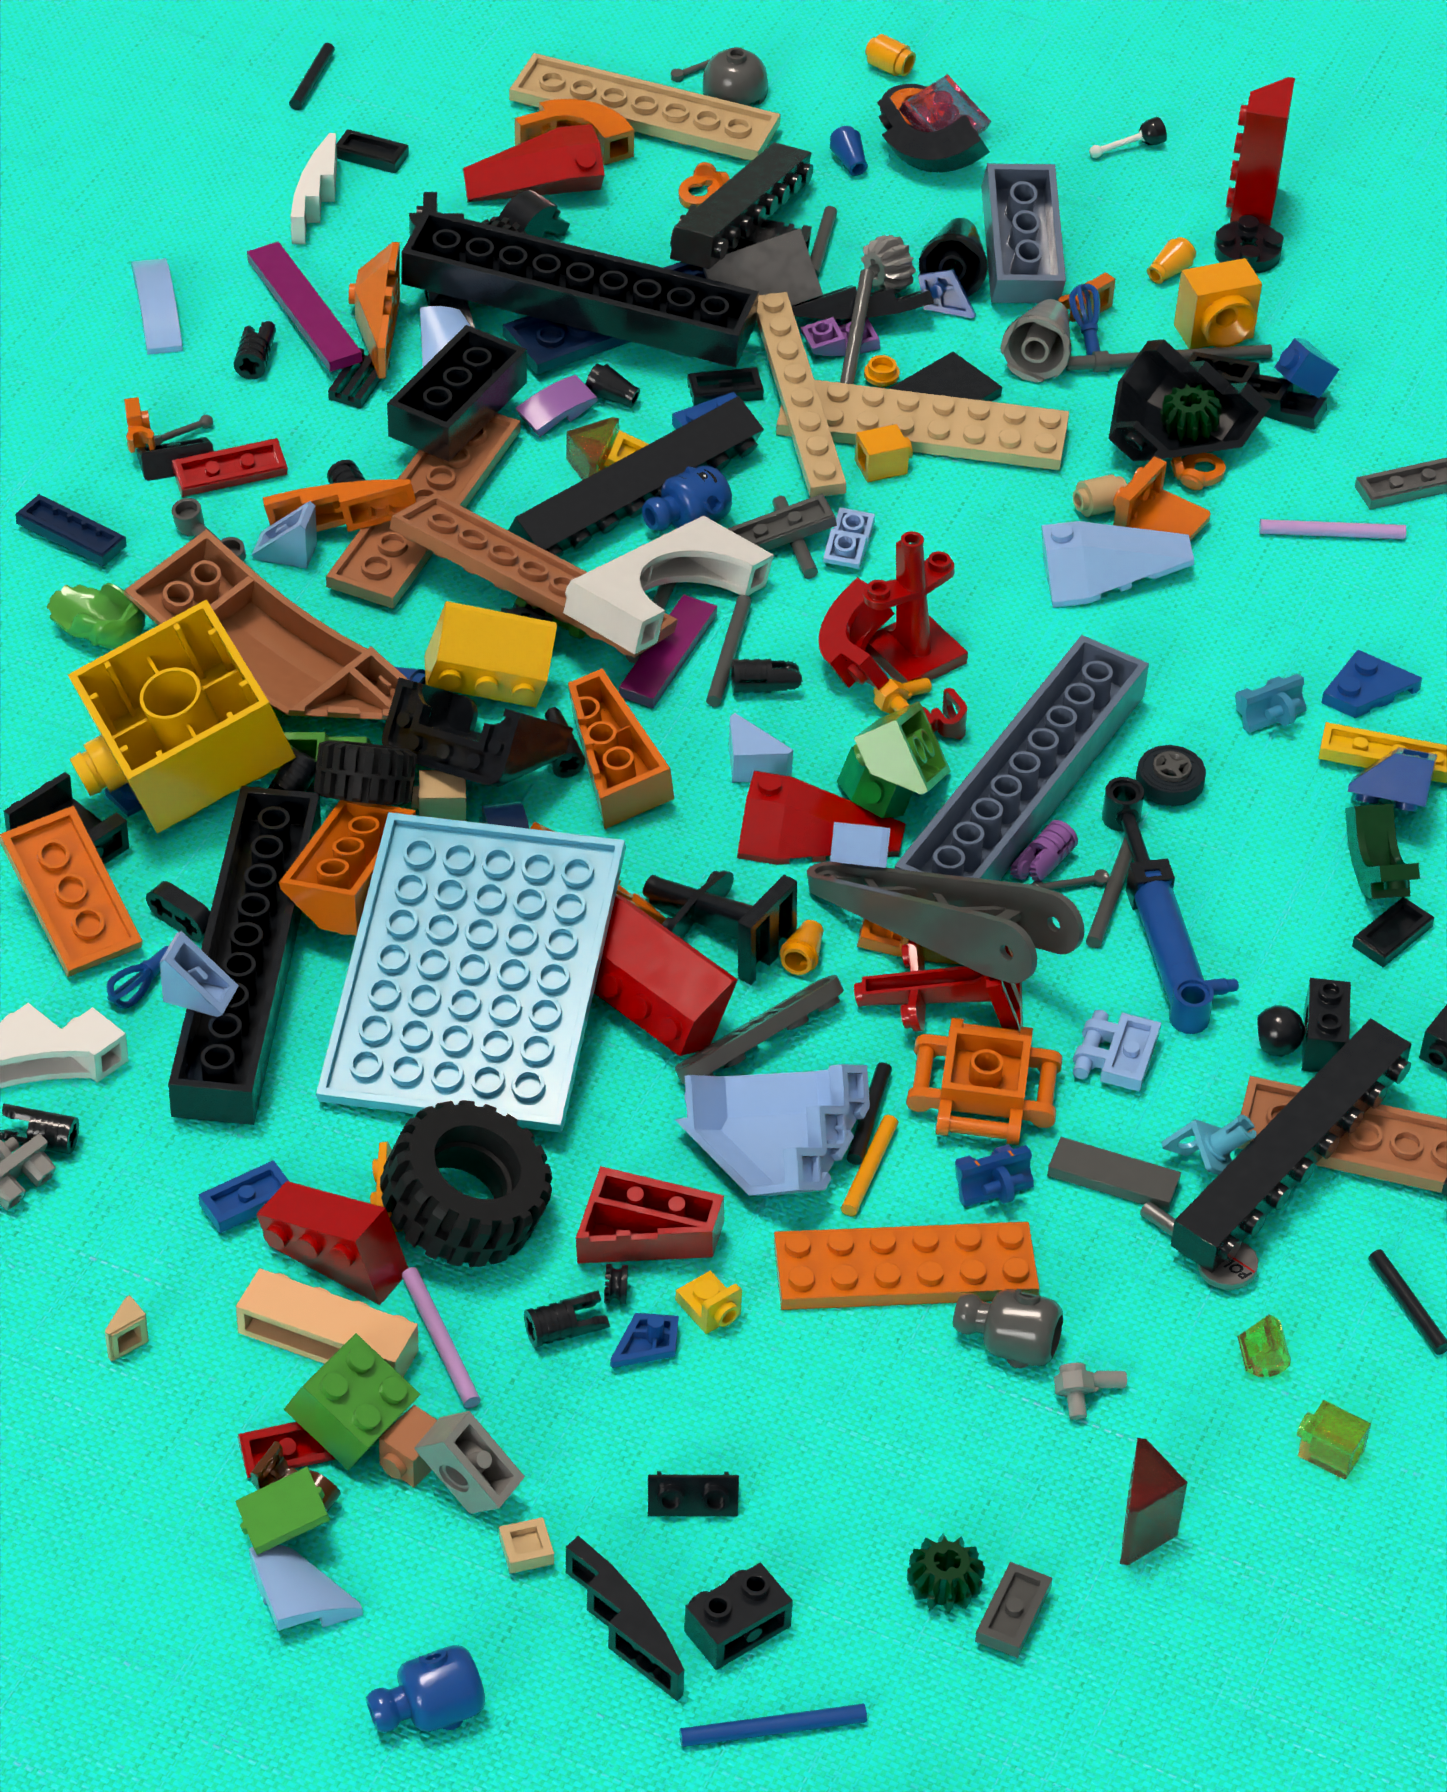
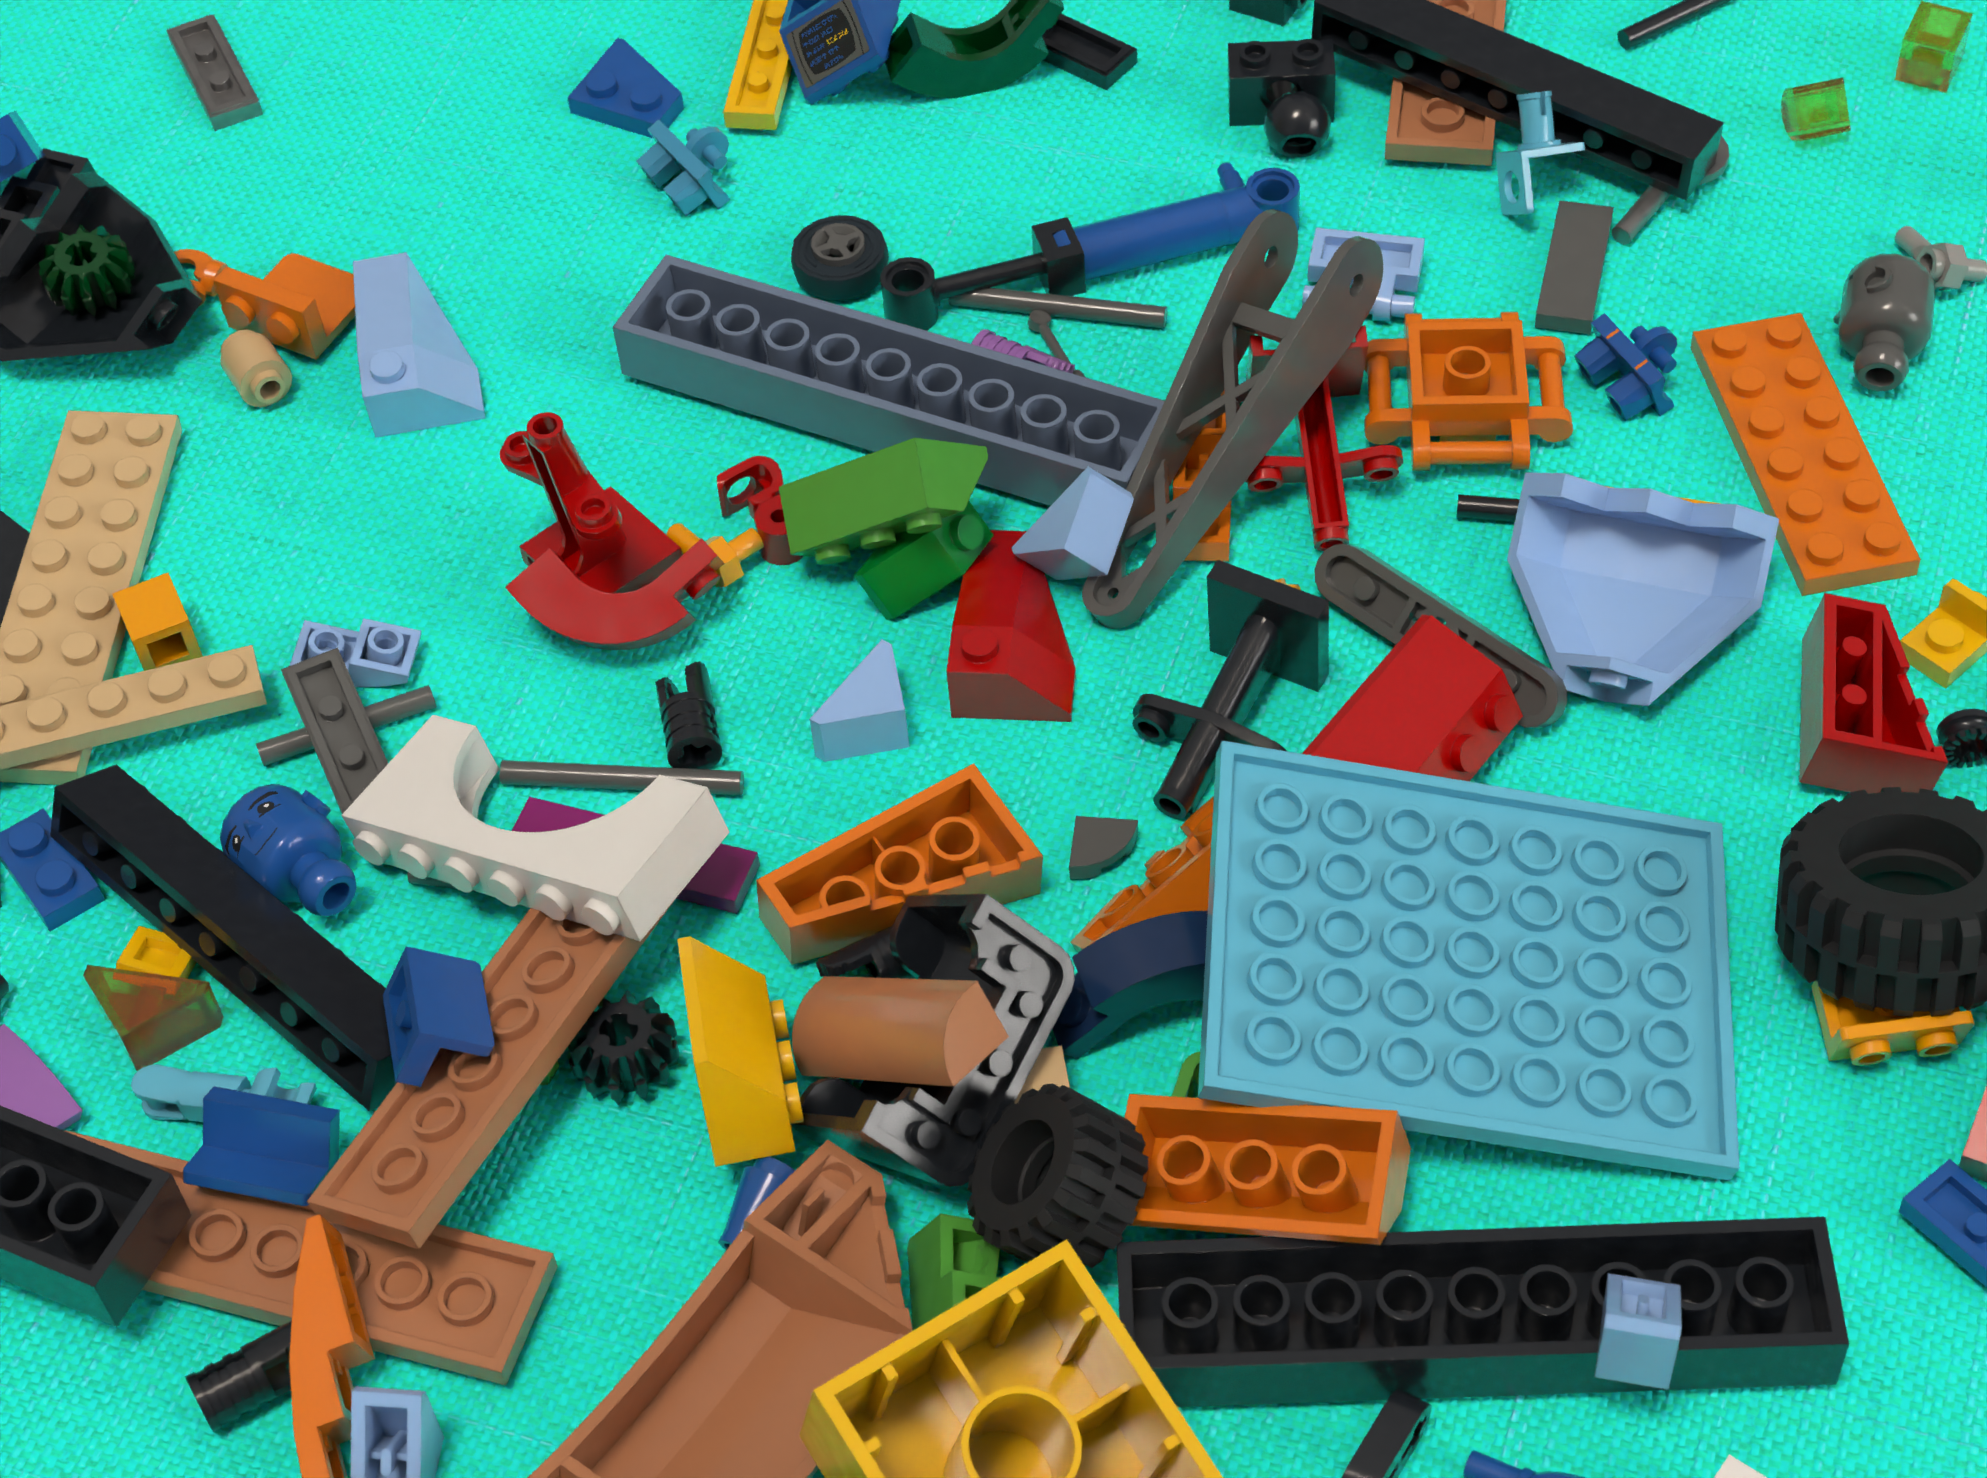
camera: 90 degrees left, 5 degrees up
(467, 711) = (894, 1029): none -> nougat brick
(481, 485) = (264, 1146): none -> blue panel
(525, 491) = (179, 1094): none -> medium azure piece
(538, 536) = (433, 1006): none -> blue panel
(635, 853) = (1099, 844): none -> dark grey tile
(1332, 529) = (313, 142): lavender bar -> none

